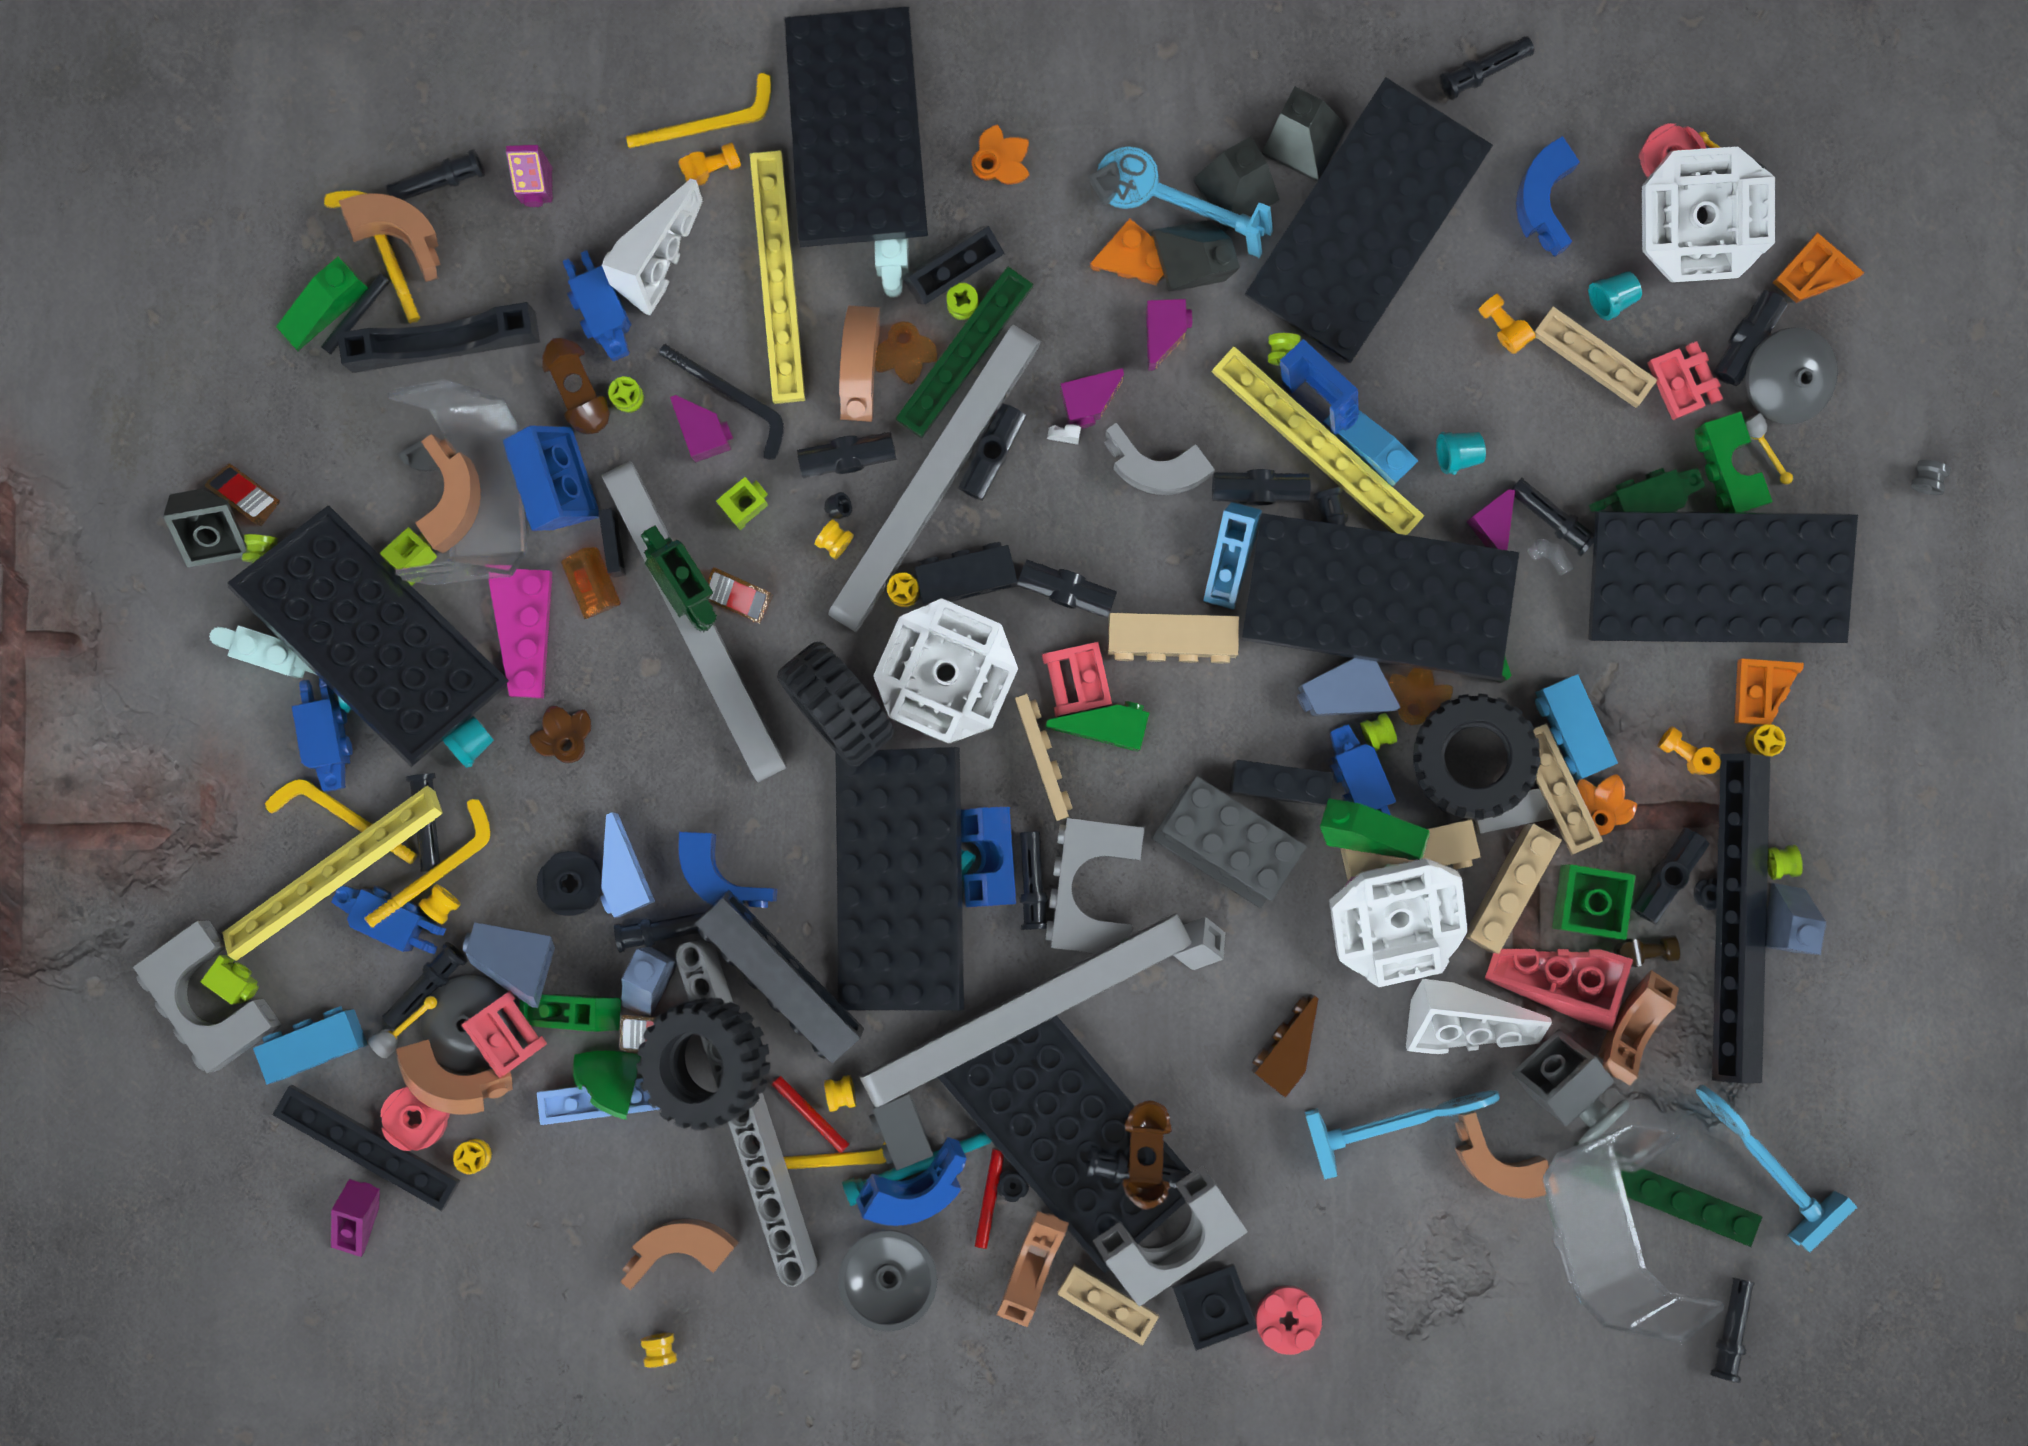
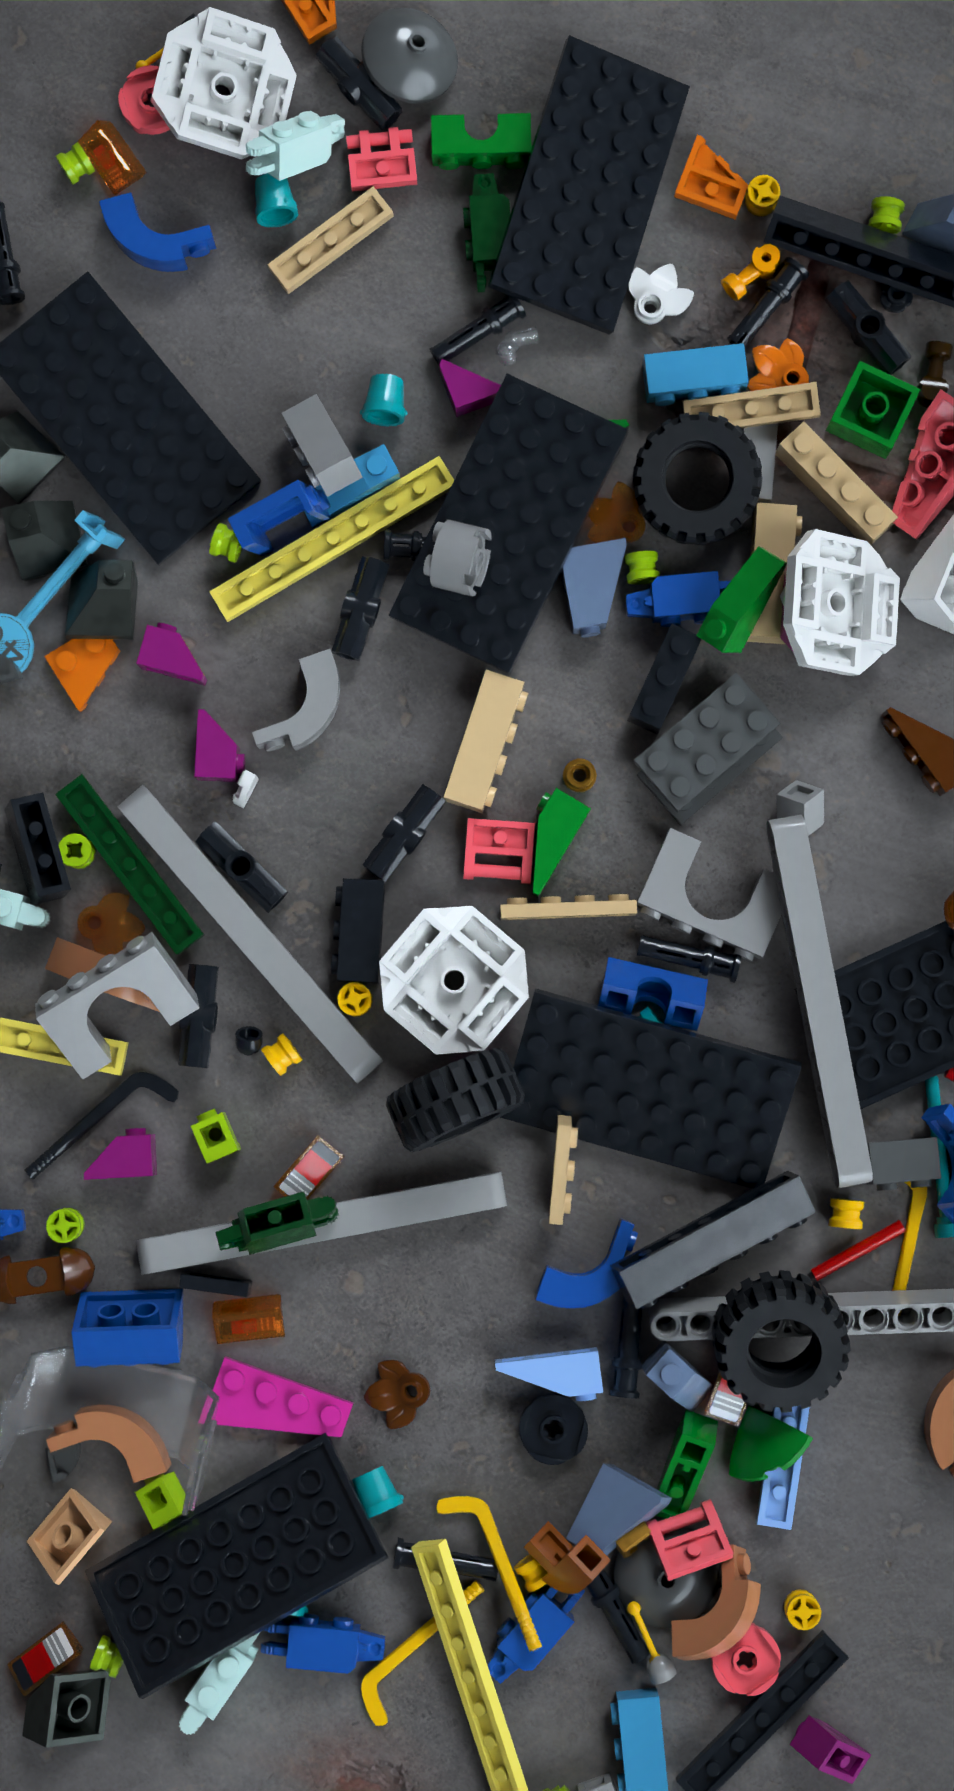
camera: 75 degrees left, 0 degrees up
(355, 481) = (67, 1534): none -> light nougat slope
(450, 929) = (567, 1566): none -> dark orange brick
(487, 980) = (627, 1544): none -> pearl gold tile
(803, 821) = (562, 1170): none -> tan plate
(872, 385) = (139, 966): none -> light grey arch
(1178, 727) = (585, 766): none -> pearl gold plate
(1232, 554) = (420, 658): dark azure slope -> none
(1332, 557) = (458, 557): none -> light grey brick
(1397, 403) = (320, 446): none -> light grey brick
(1513, 333) = (282, 312): light orange leg -> none
(1591, 105) = (75, 163): none -> lime wheel
(1609, 136) = (111, 156): none -> clear orange slope
(1643, 674) = (659, 290): none -> white plate
(1671, 295) = (294, 145): none -> light aqua hinge
(1676, 780) = (777, 292): none -> black pin
(1757, 428) = (453, 106): hinge -> none

